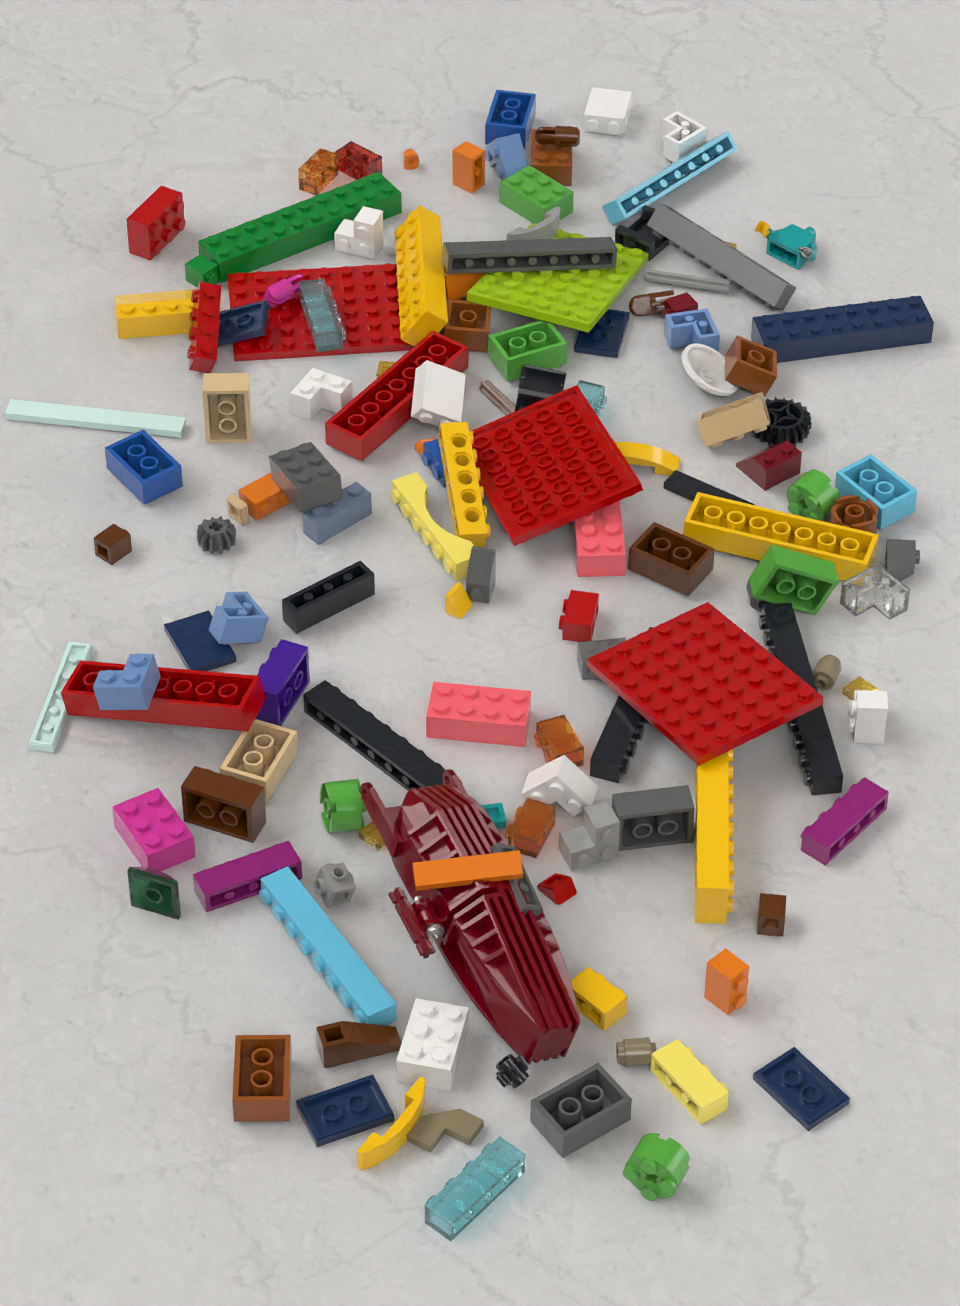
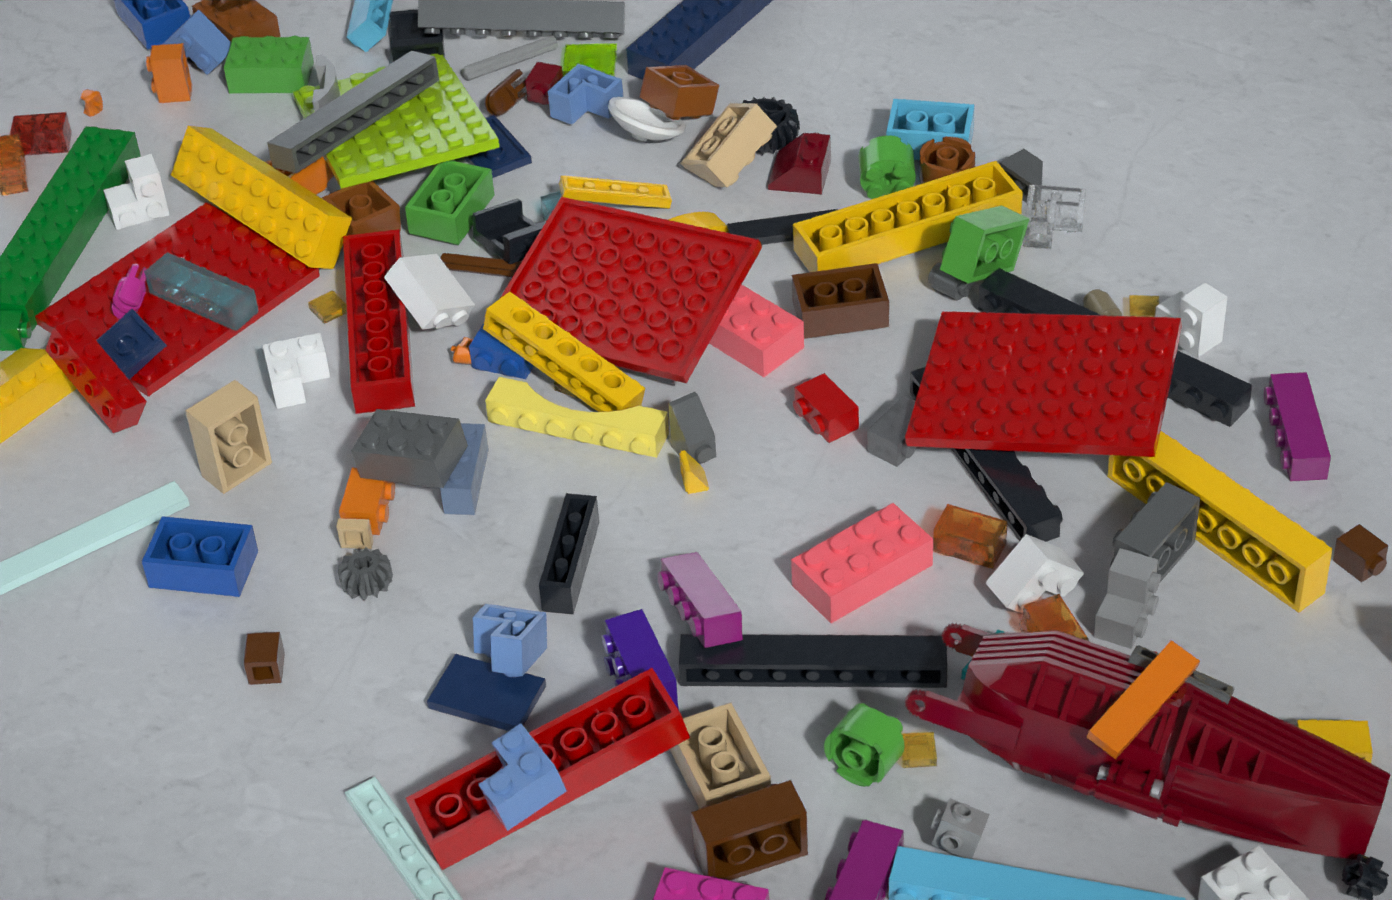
camera: 40 degrees left, 0 degrees up
(357, 668) = (700, 599): none -> brick
(630, 406) = (615, 191): none -> yellow tile
(734, 315) = (596, 56): none -> clear neon green tile

